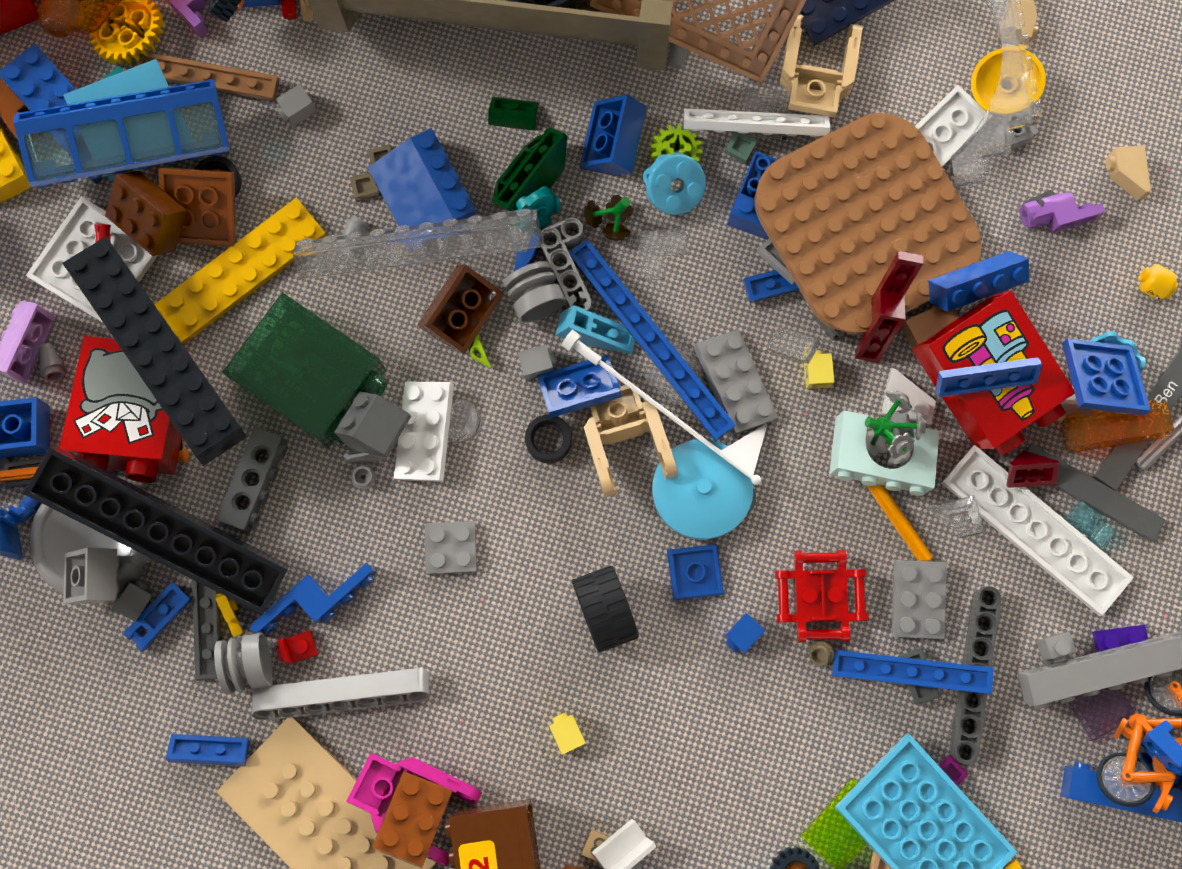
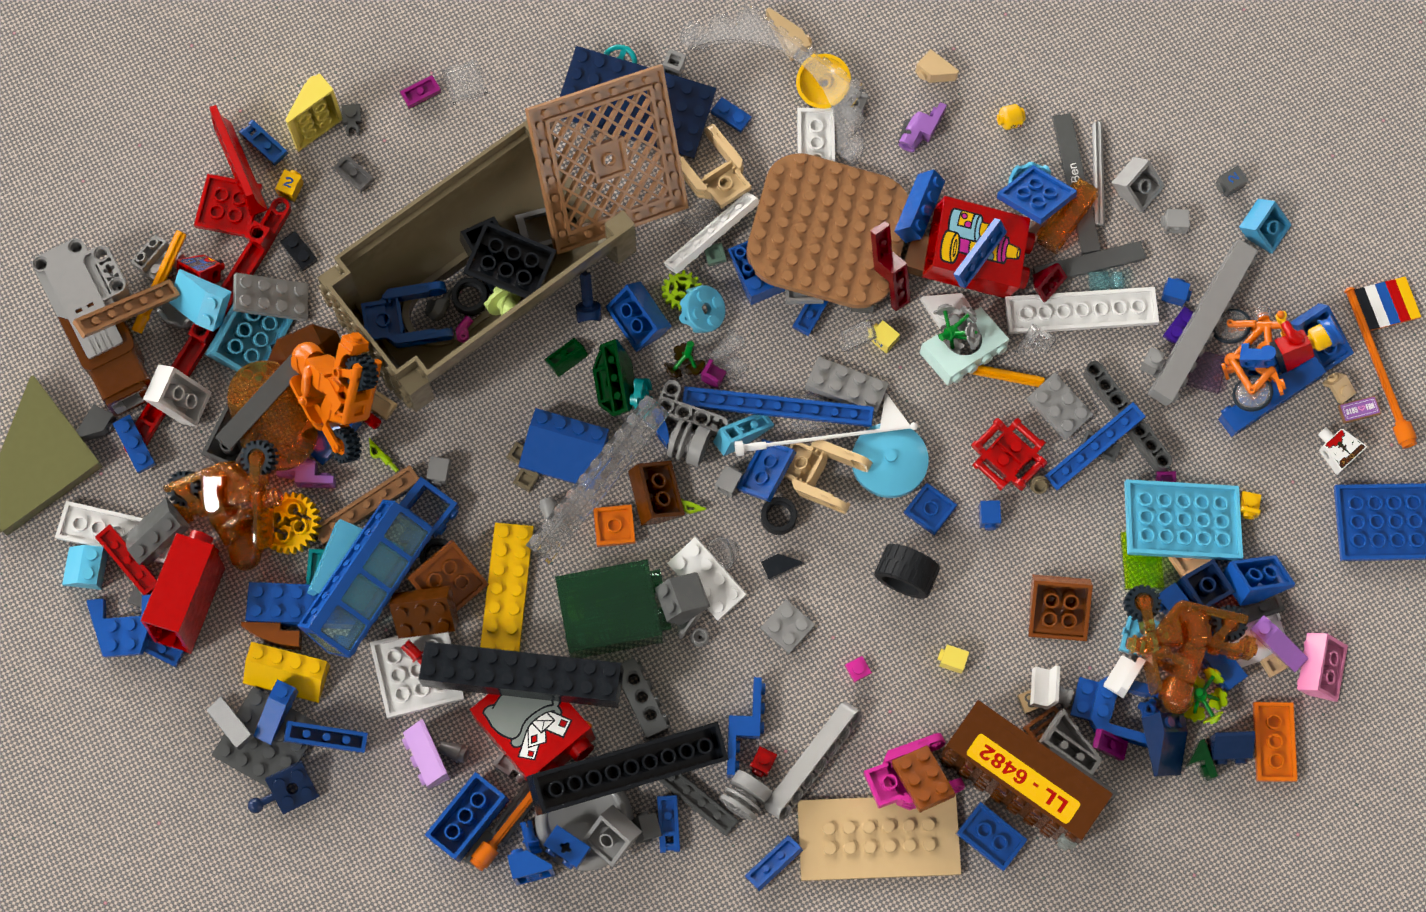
camera: 50 degrees left, 5 degrees down
(48, 555) = (561, 837): none -> blue brick
(228, 609) = (704, 779): yellow plate -> none
(254, 106) = (415, 493): none -> blue window
(266, 44) = (380, 454): none -> lime hand
(394, 302) = (614, 525): none -> orange plate
(472, 651) = (858, 669): none -> dark pink plate
(502, 484) = (779, 564): none -> black slope
(573, 85) = (588, 308): none -> dark blue piece
(624, 252) = (712, 374): none -> magenta panel
(718, 789) = (1059, 607): none -> dark orange slope
(889, 36) = (731, 114): none -> blue plate
(1150, 603) = (1176, 291): none -> blue brick

